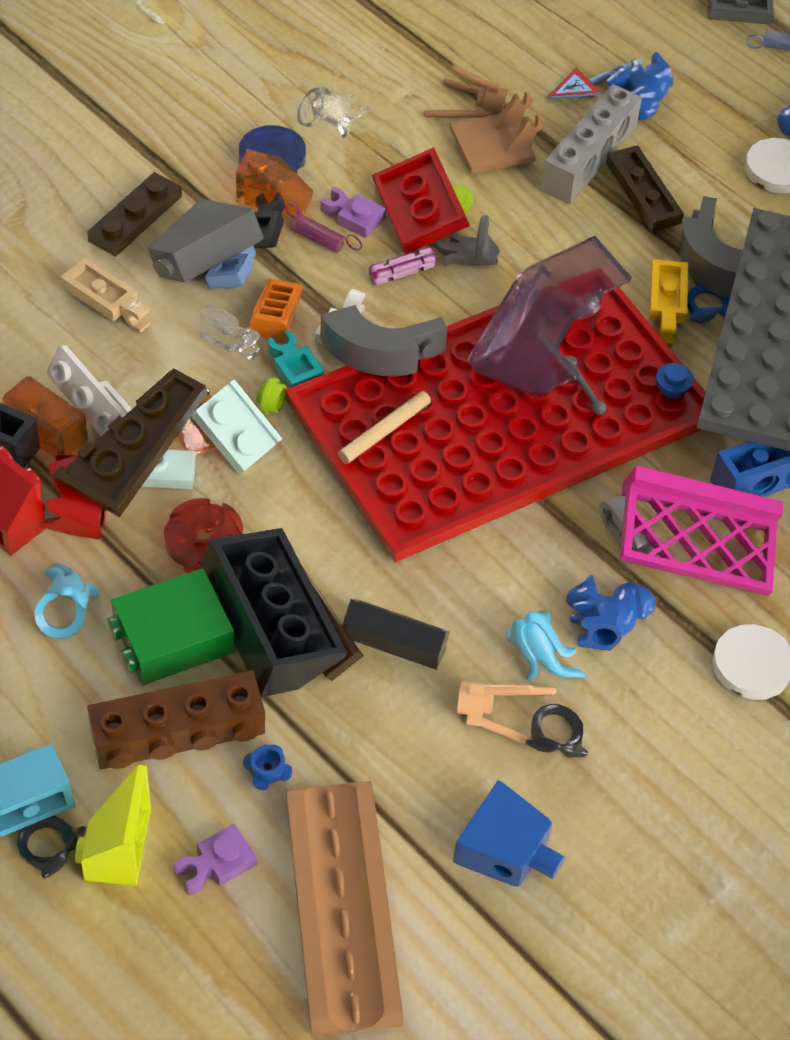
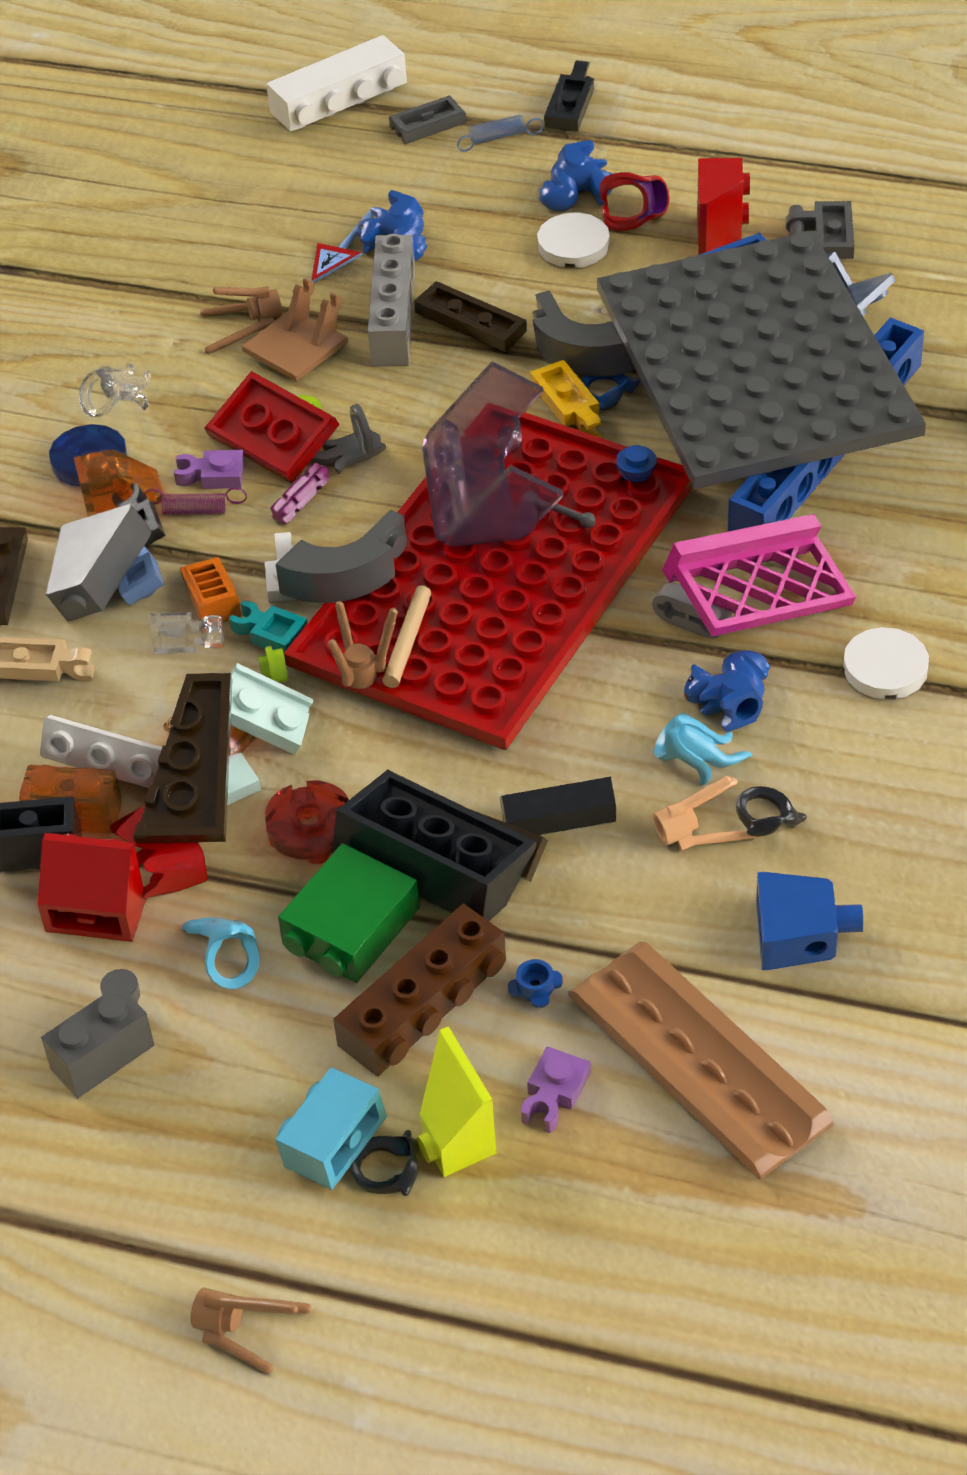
camera: 25 degrees left, 5 degrees down
(328, 428) = (359, 663): none -> medium nougat plant

